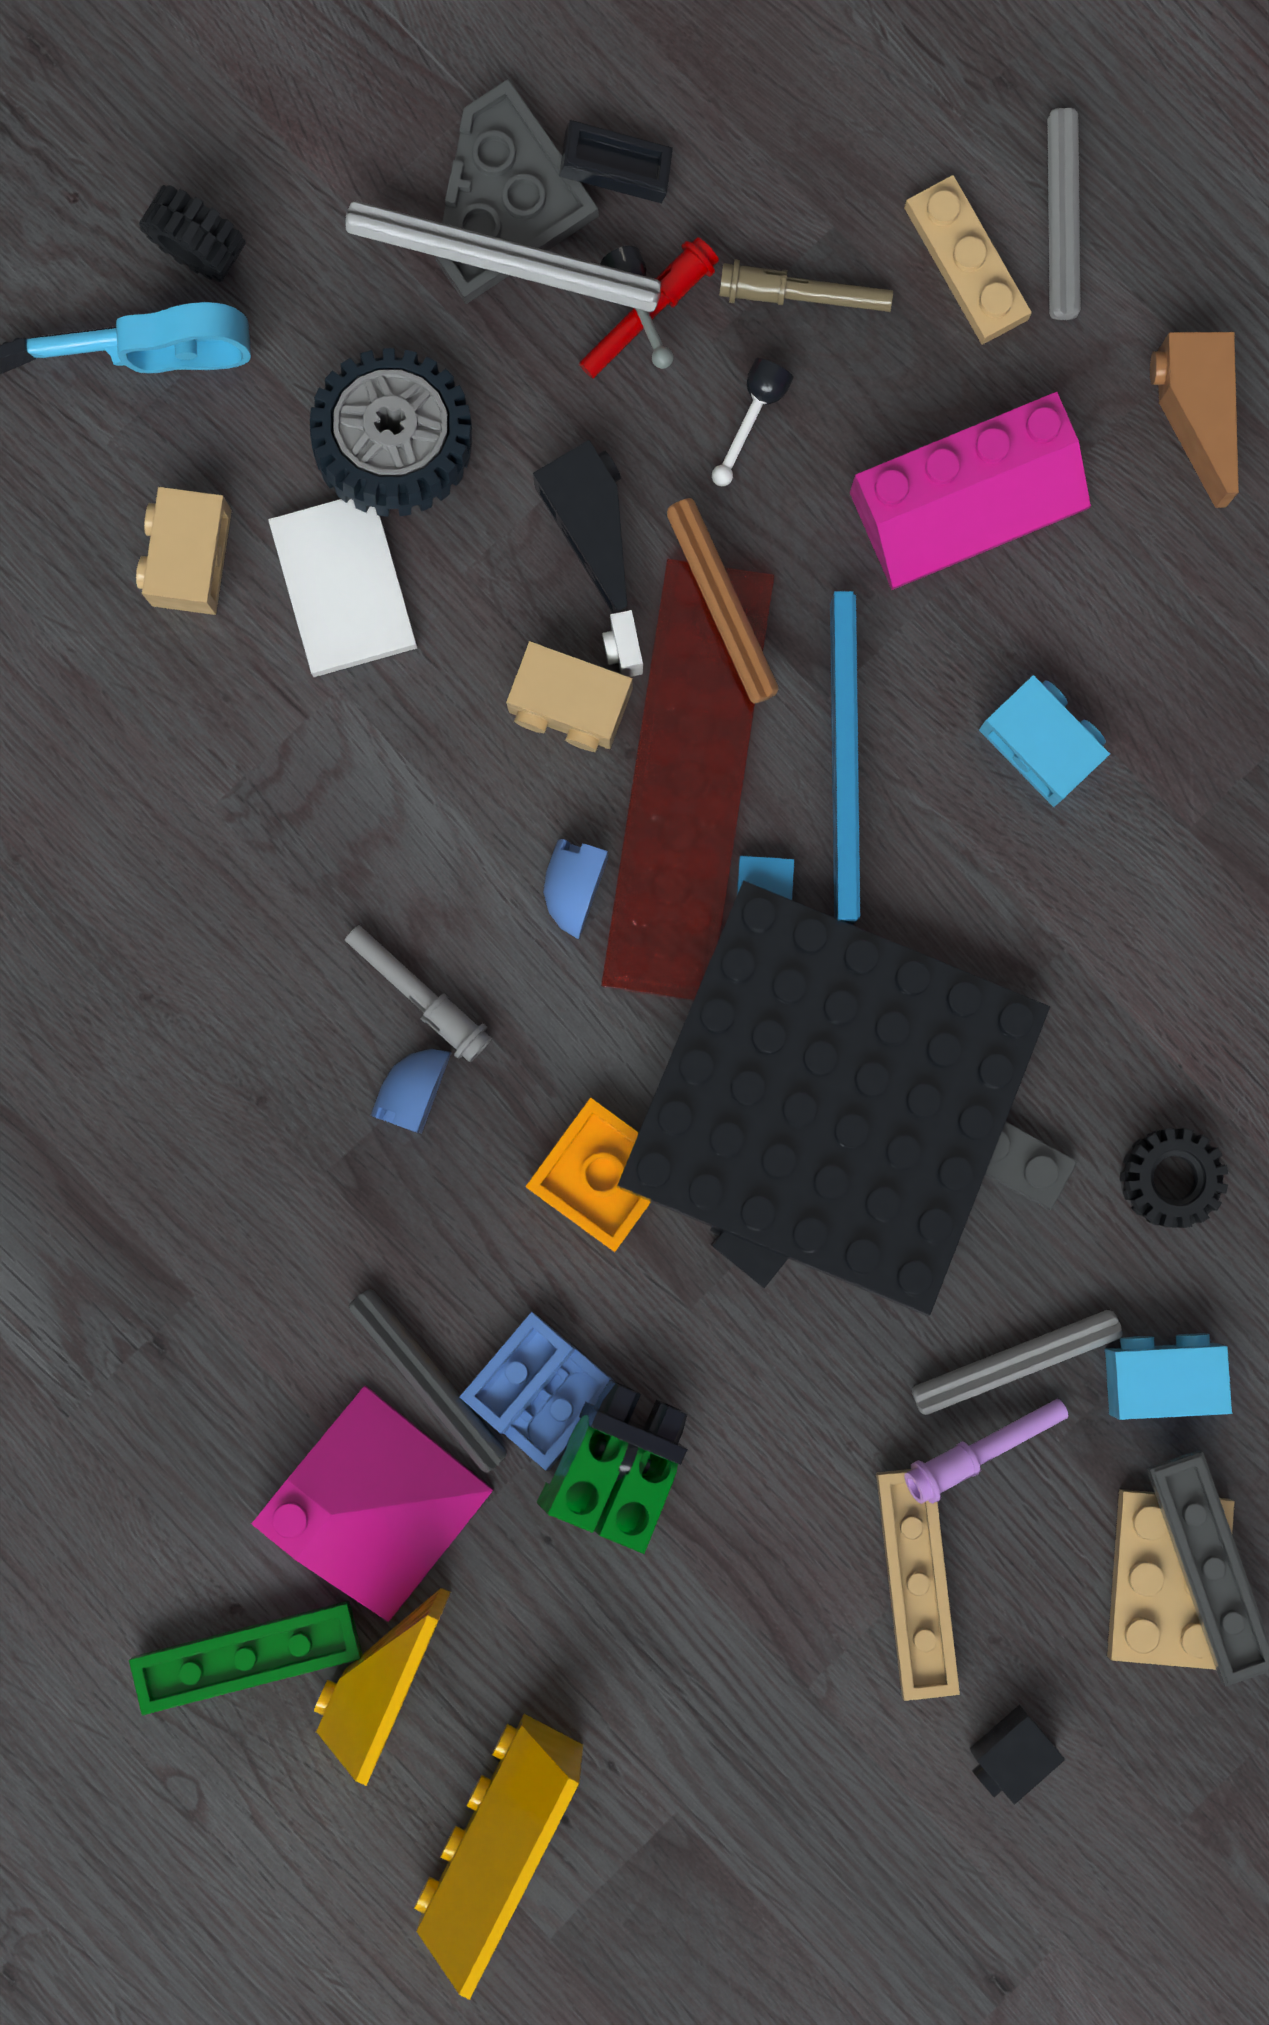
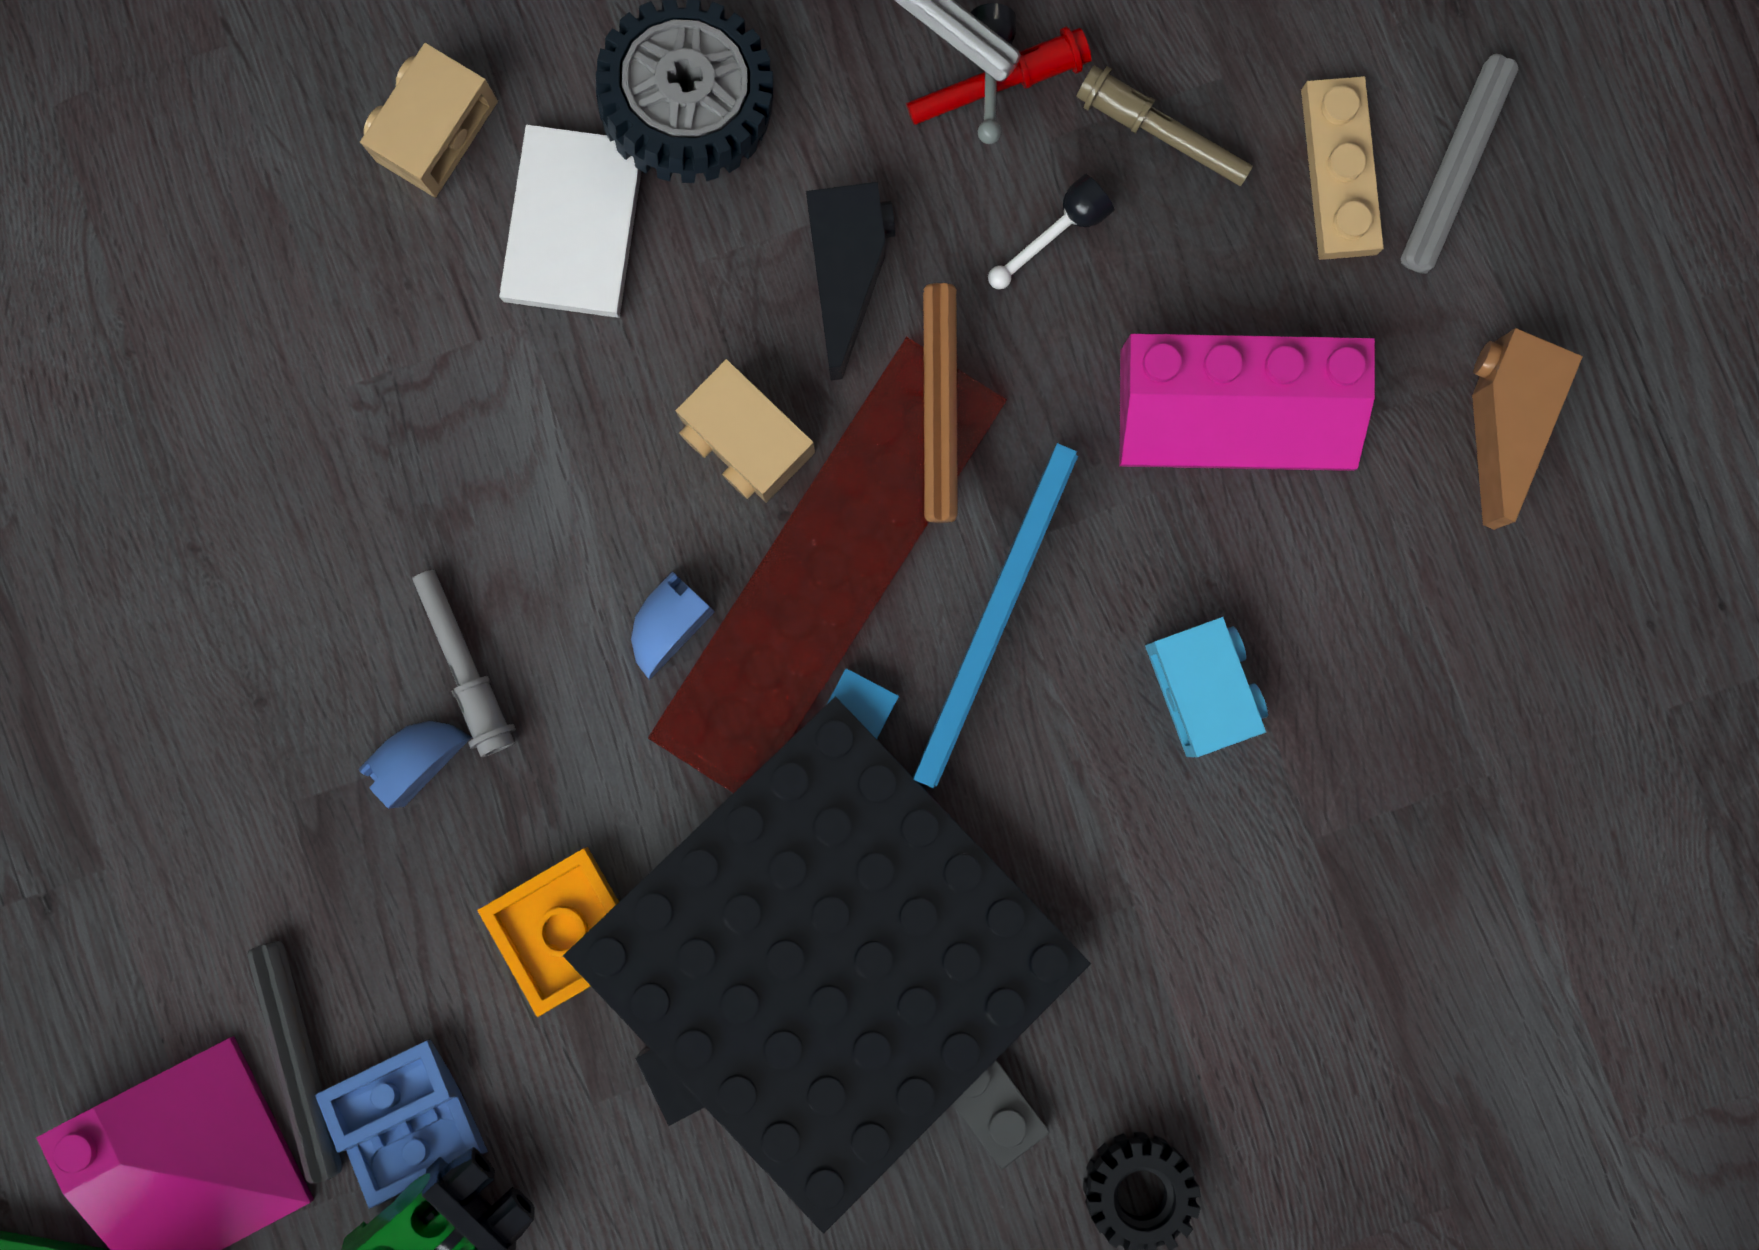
camera: 20 degrees right, 0 degrees up
(623, 645) = (822, 403): white plate -> none

